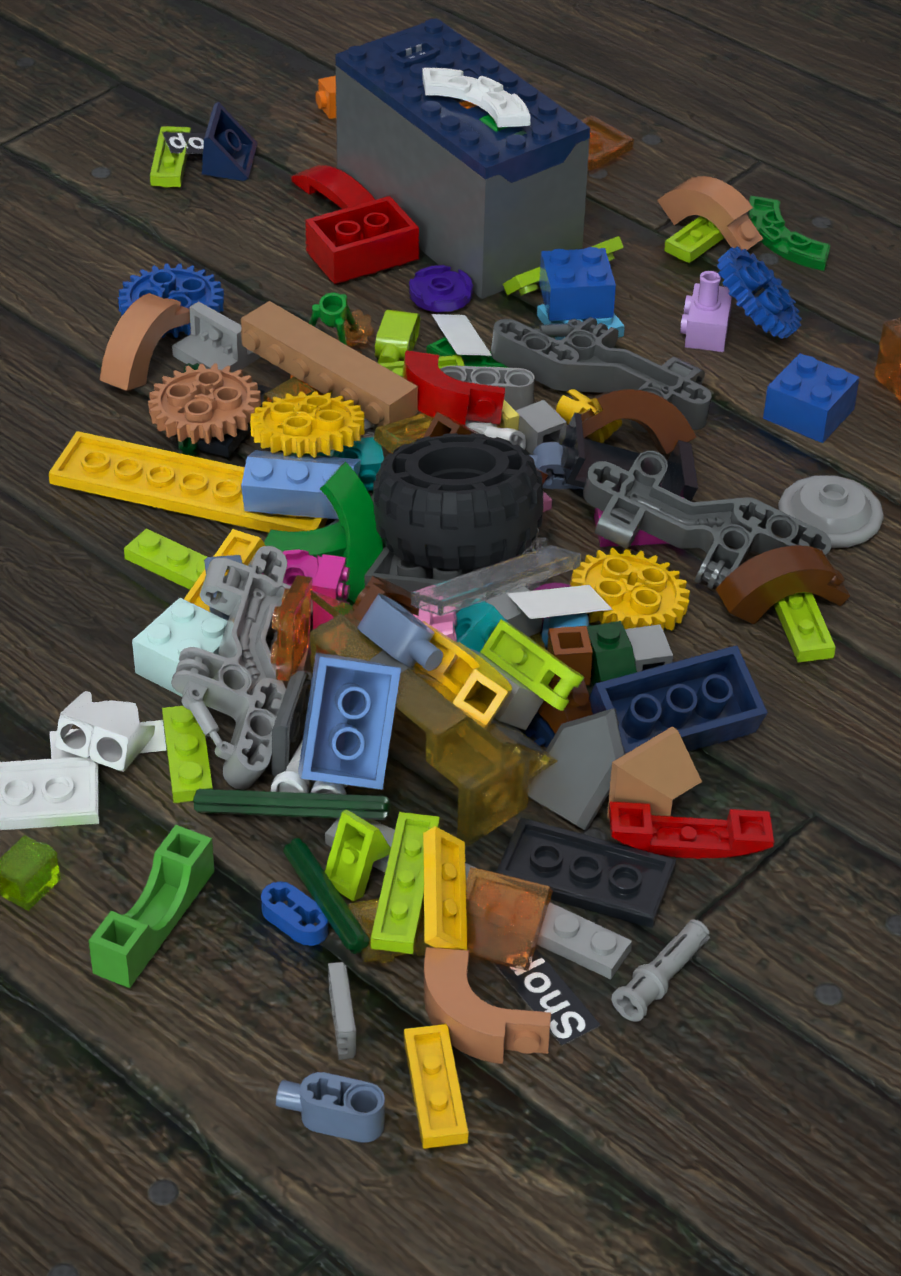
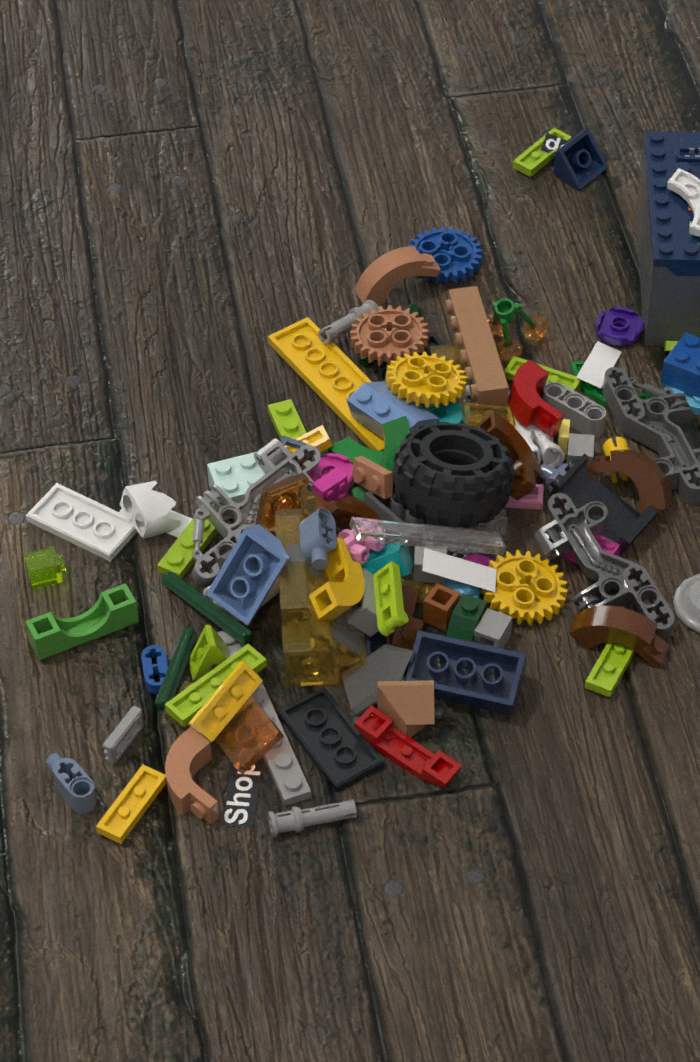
camera: 40 degrees right, 5 degrees up
(136, 411) = (344, 324): none -> light grey pin
(213, 341) = (433, 296): light grey bracket -> none
(333, 184) = (624, 232): red slope -> none
(362, 239) = (597, 268): red brick -> none
(366, 549) = (373, 477): none -> nougat plate
(396, 335) = (556, 347): lime piece -> none

